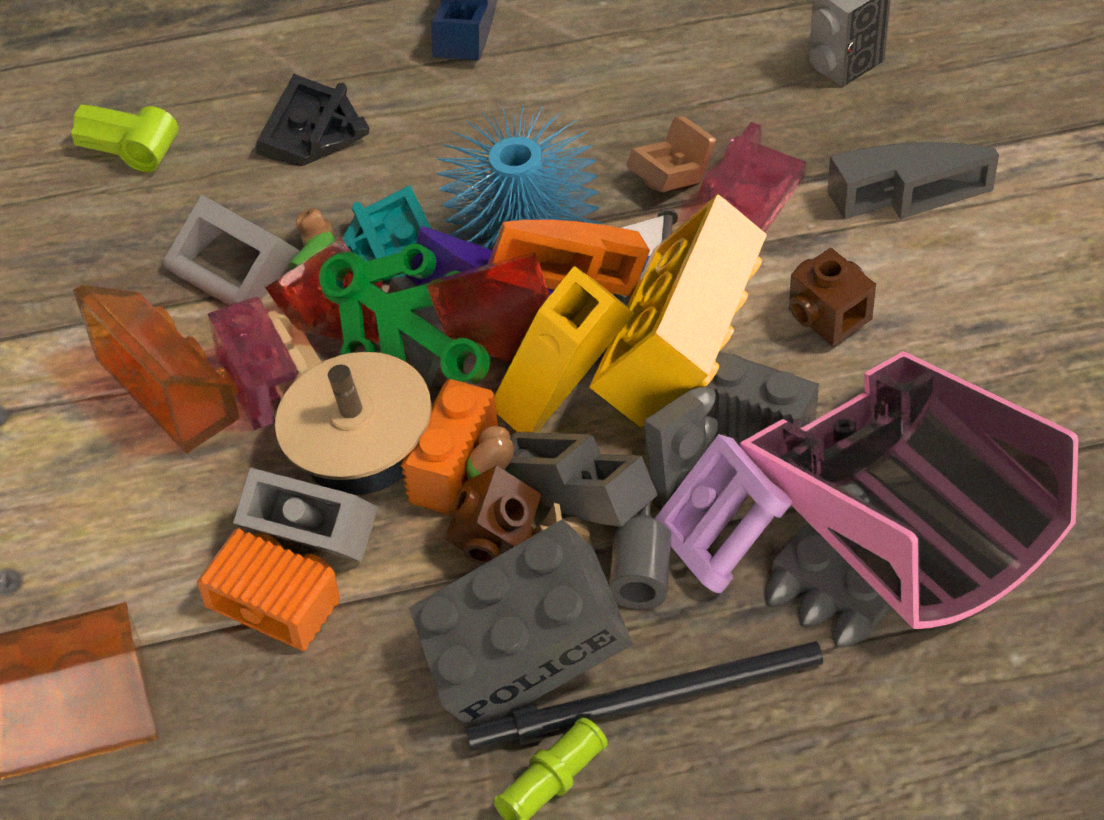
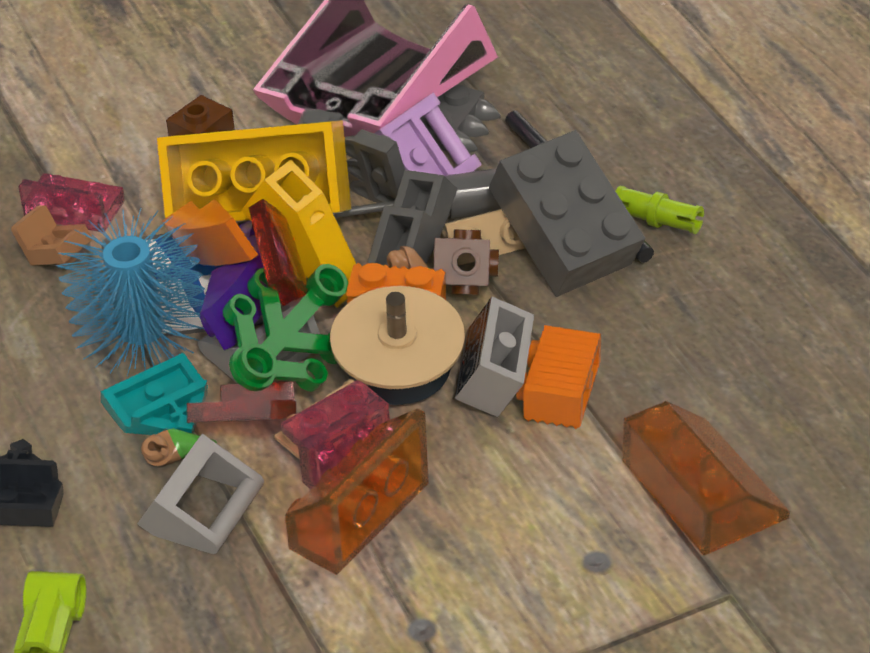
camera: 105 degrees left, 10 degrees down
(909, 177) = (63, 119): dark grey slope -> none

